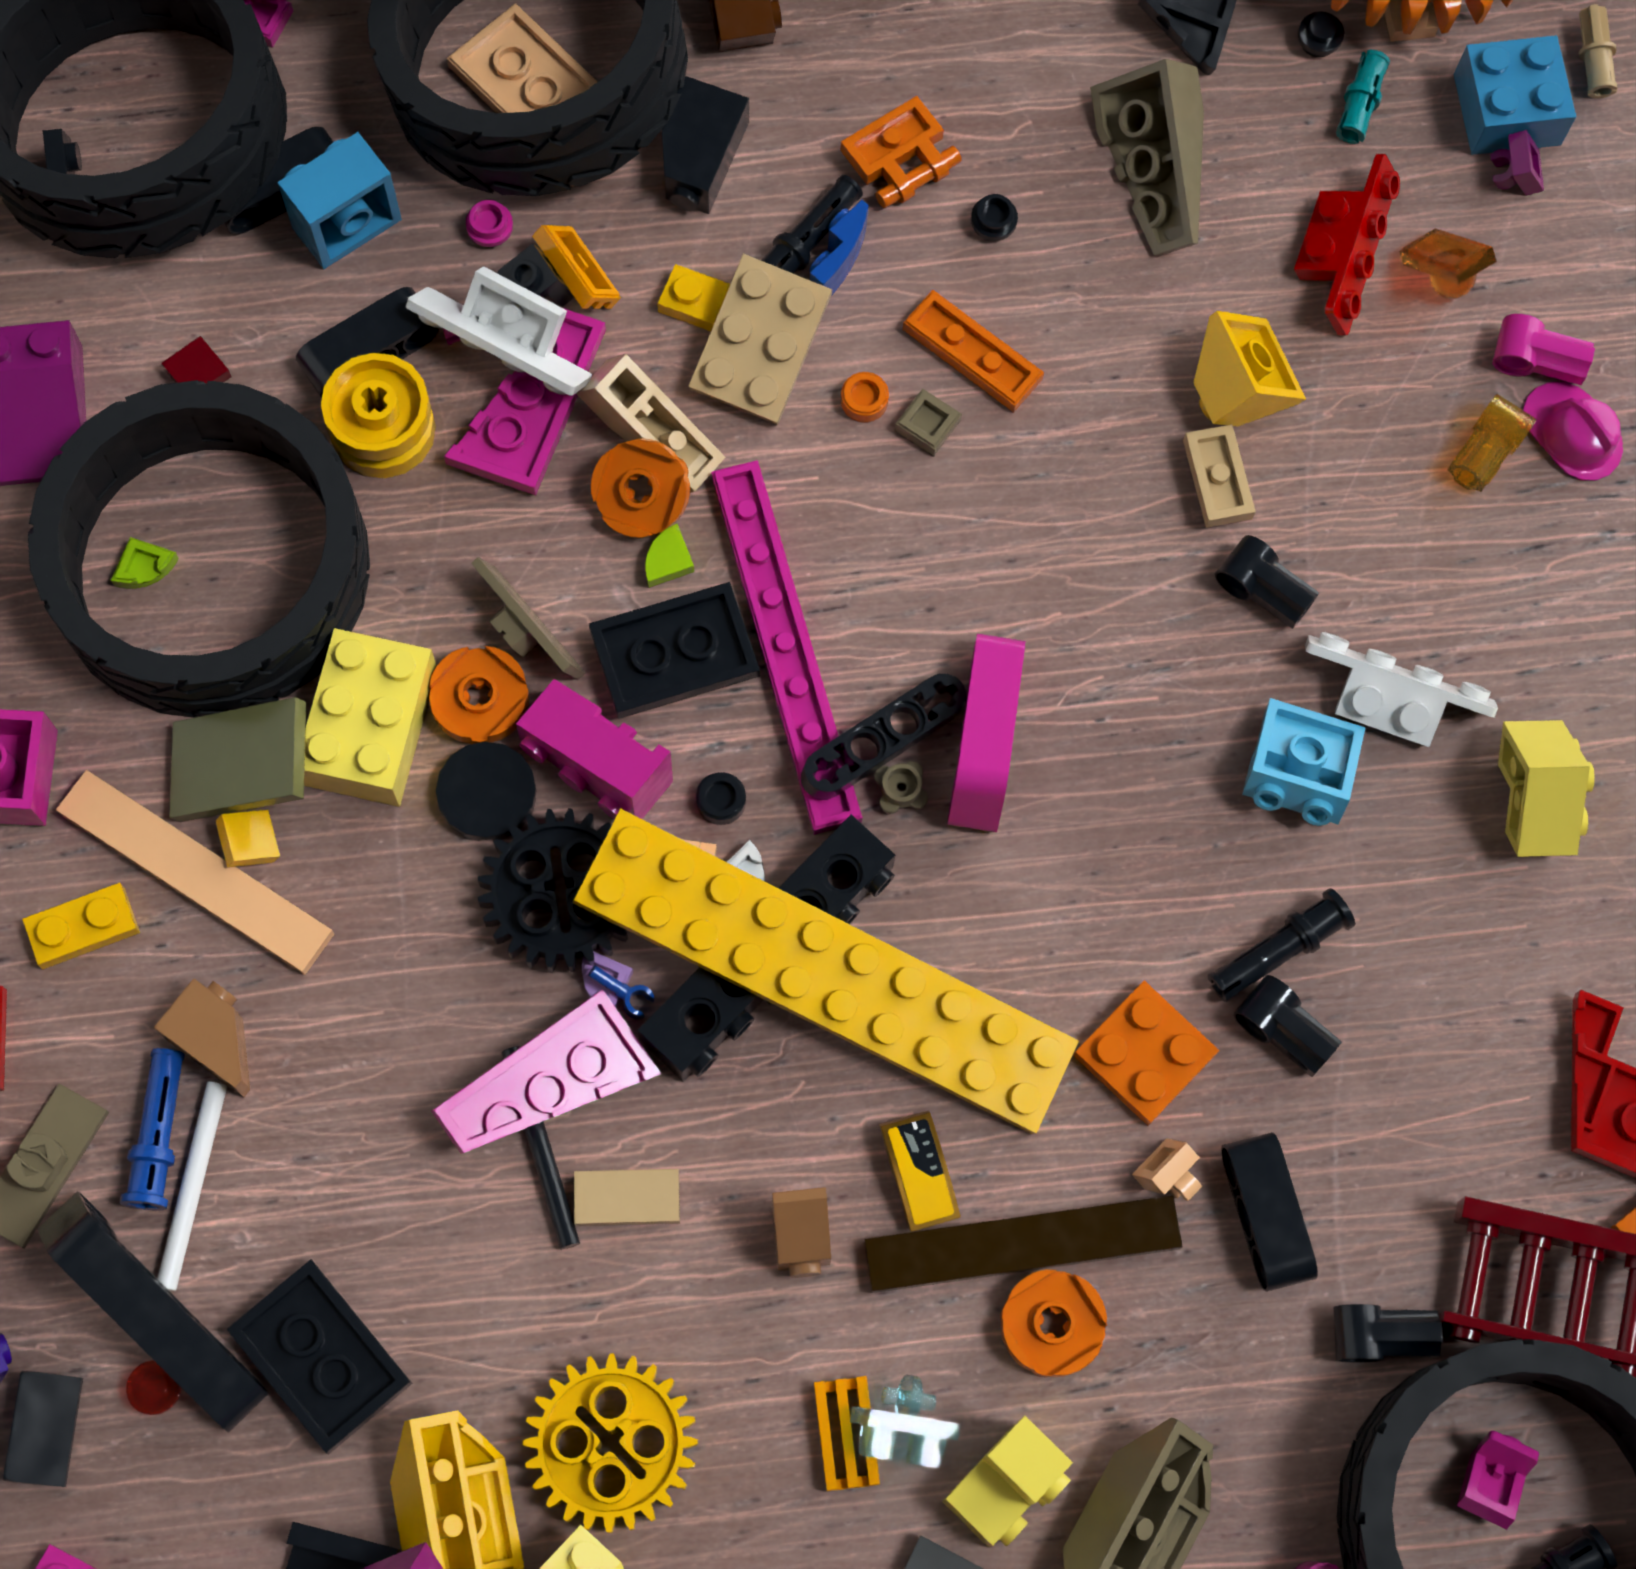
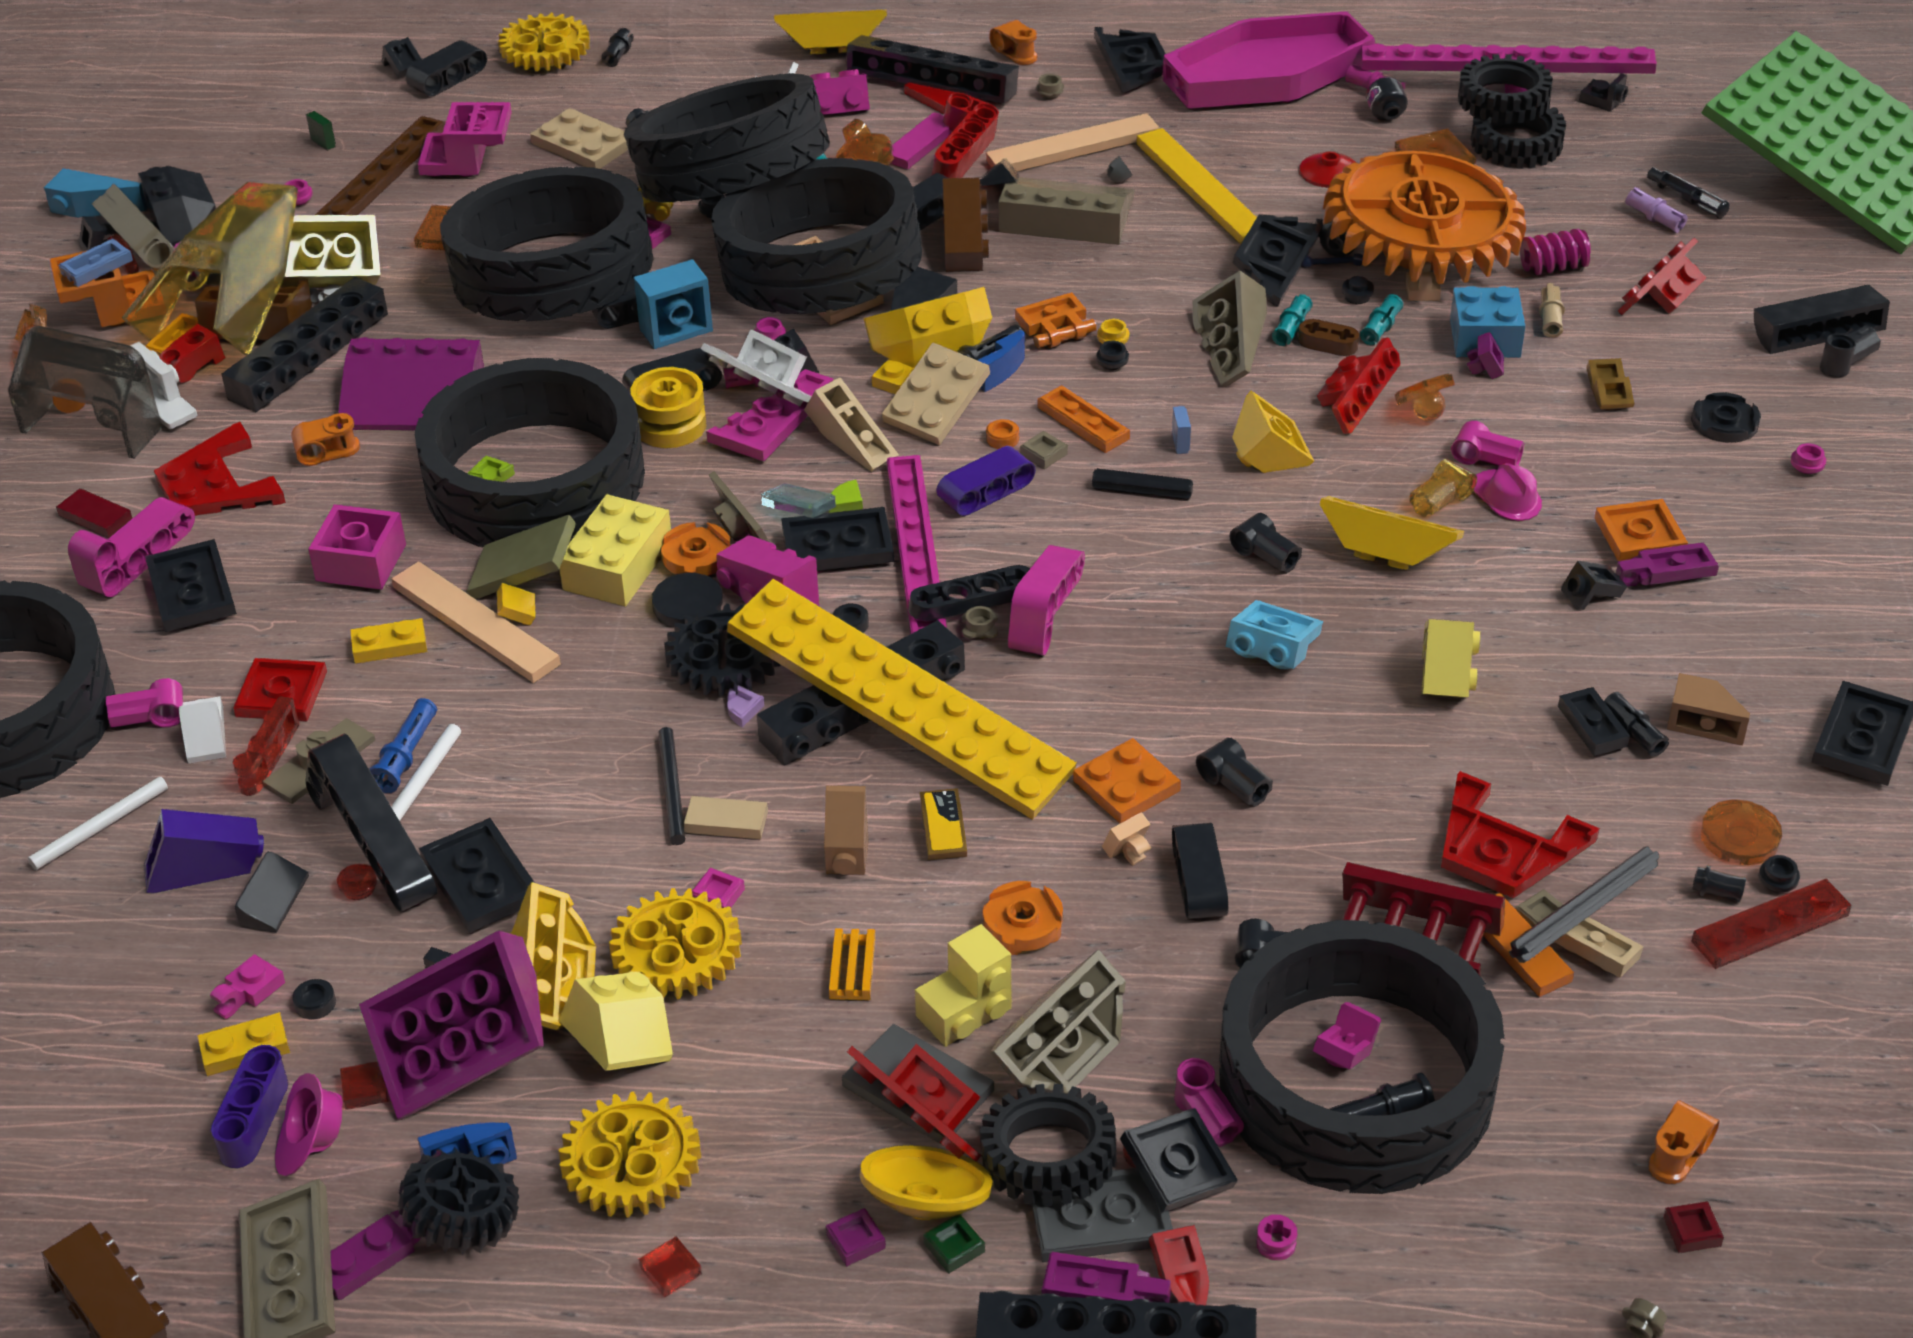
camera: 15 degrees right, 30 degrees down
(209, 1032) = (457, 696): medium nougat slope -> none
(556, 1071) = (690, 736): wing -> none
(576, 266) = (822, 353): light orange tile -> none
(605, 581) = (798, 500): none -> clear light blue tile
(616, 501) = (821, 442): orange plate -> none
(622, 991) = (754, 705): blue hand -> none
(642, 1330) = (721, 886): none -> dark pink tile
(730, 207) = (947, 321): none -> yellow wedge
(861, 505) = (986, 480): none -> dark purple beam
(926, 1435) = (894, 948): clear light blue hips -> none
(987, 170) = (1113, 330): none -> yellow plate
(1022, 1244) = (986, 872): dark brown tile -> none
(1078, 478) = (1142, 483): none -> black axle
(1117, 368) = (1181, 429): none -> medium blue tile
(1219, 476) = (1242, 488): tan plate -> none
(1237, 111) = (1291, 319): none -> teal pin
(1292, 141) = (1328, 337): none -> reddish brown beam
(1301, 933) = (1253, 724): black pin -> none
(1395, 697) = (1350, 609): white bracket -> none
(1438, 553) = (1386, 533): none -> yellow wedge

